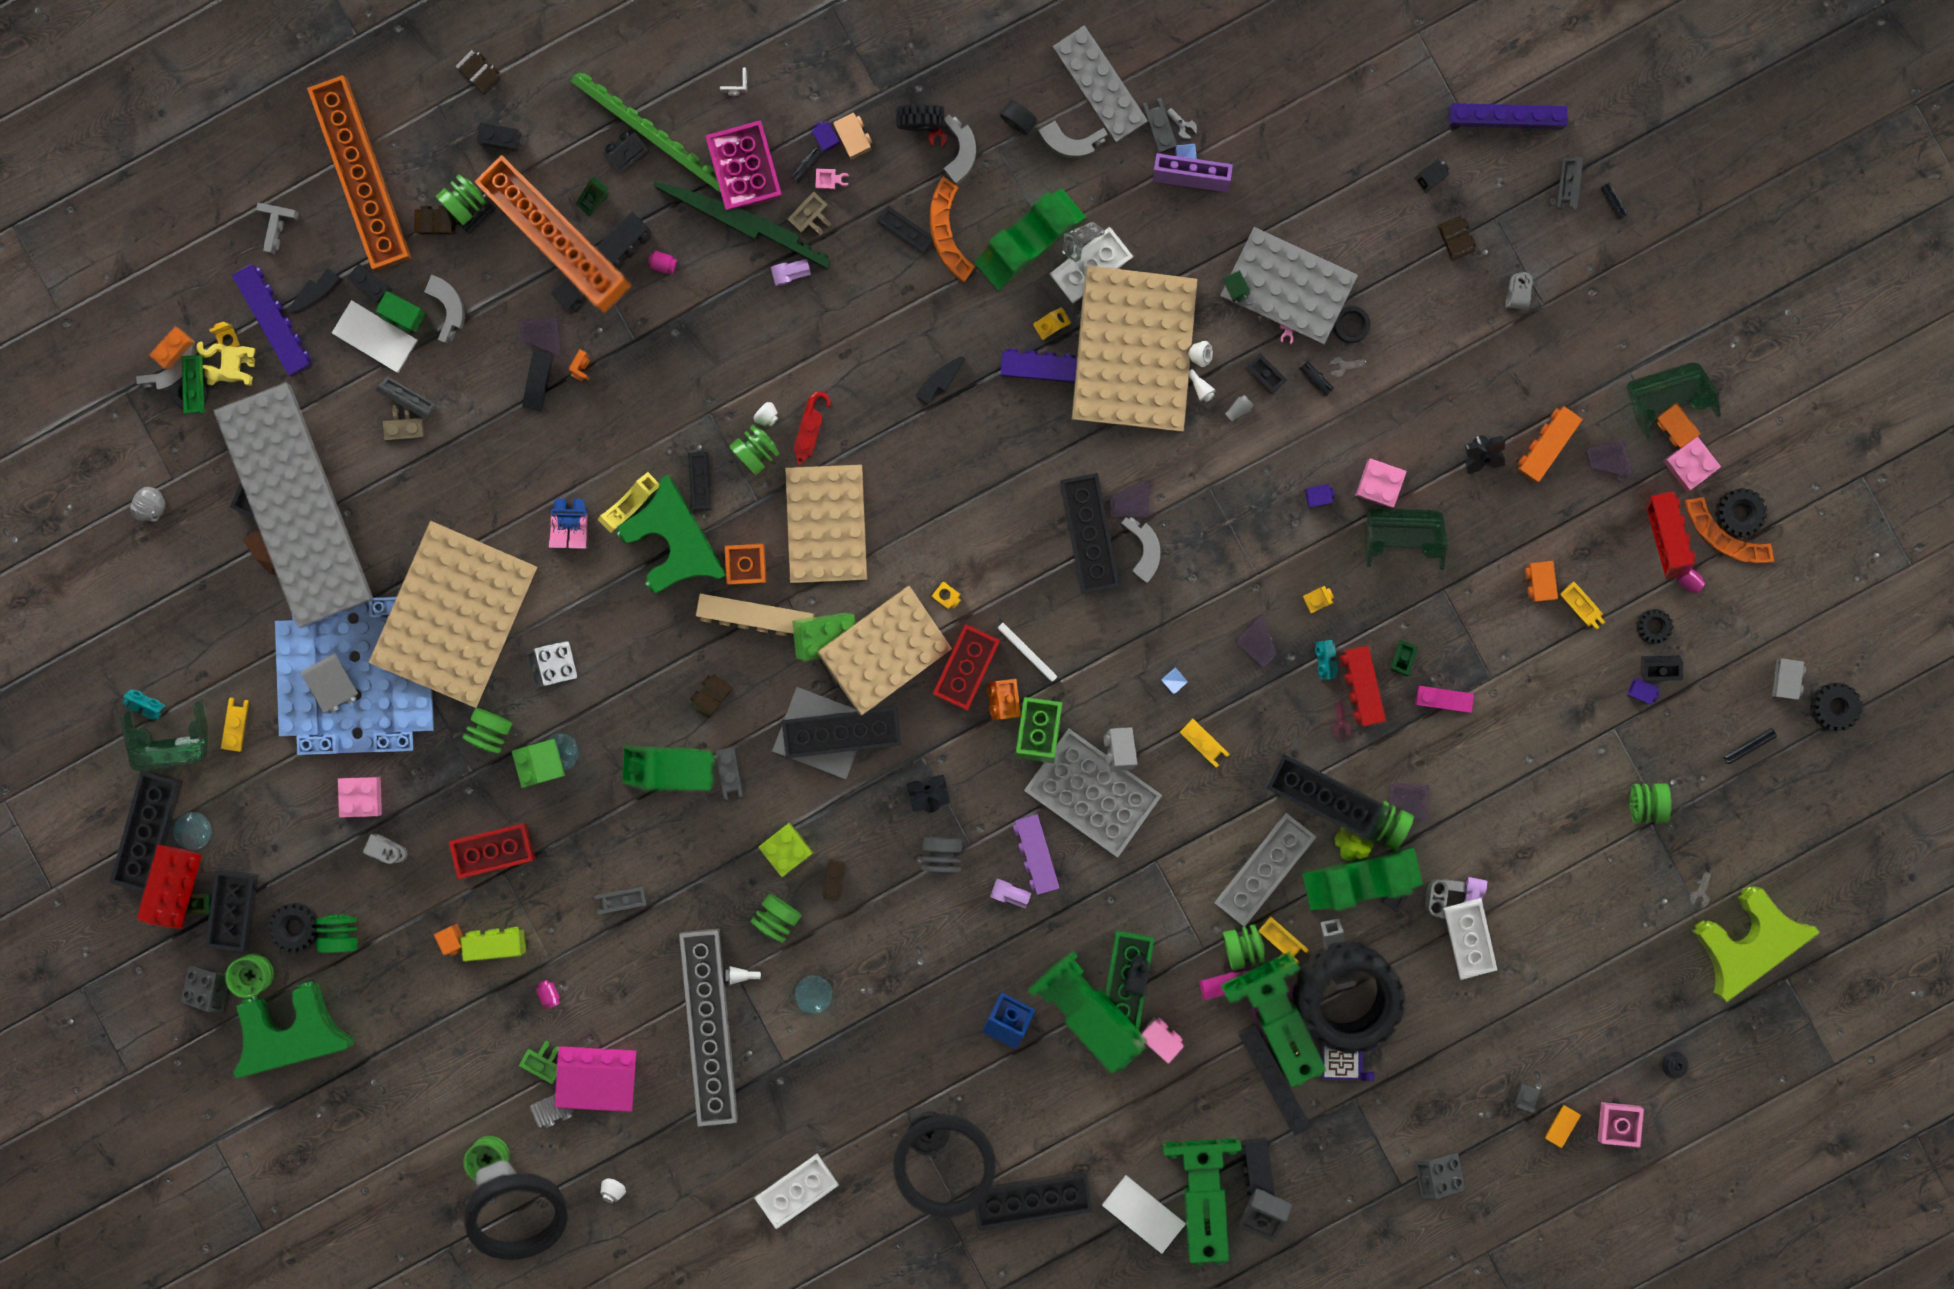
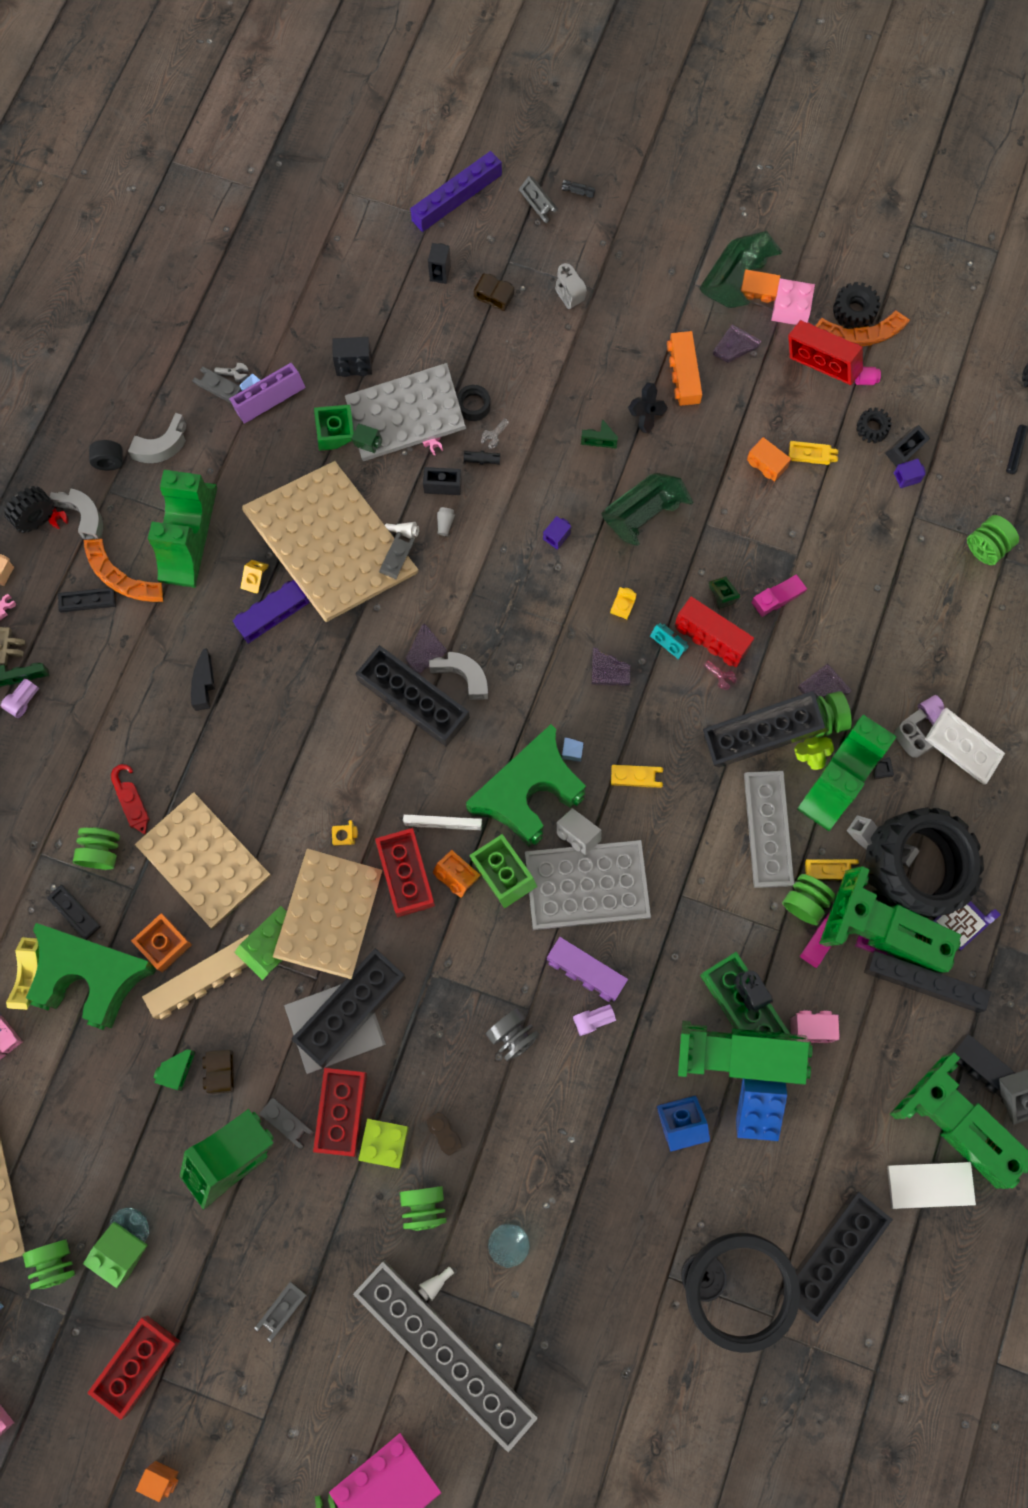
camera: 45 degrees left, 15 degrees down
(382, 848) = (36, 1452): light grey piece -> none
(493, 944) = (198, 1450): lime brick -> none
(547, 994) = (284, 1452): dark pink brick -> none
(551, 664) = (63, 1161): bracket -> none
(679, 667) = (174, 1070): none -> green slope
(766, 415) = (86, 816): white cone -> none
(773, 801) = (340, 1112): none -> red brick
(796, 1191) = (640, 1432): white tile -> none
(929, 795) = (462, 996): black plant -> none
(1068, 1061) = (761, 1109): none -> blue brick
(1076, 238) = (220, 503): clear bracket -> none
(1095, 674) = (531, 771): none -> green piece
(1100, 84) = (149, 392): light grey plate -> none
(1101, 252) = (240, 531): white tile -> none
(1174, 408) = (396, 556): none -> dark grey hinge
(1201, 353) = (382, 506): white cone -> none
(1220, 250) = (333, 426): none -> green slope
(1287, 201) = (352, 356): none -> black brick
(1380, 483) = (593, 487): bright pink brick -> none
(1429, 448) = (604, 438): none -> dark green slope
(1788, 679) = (996, 383): light grey brick -> none

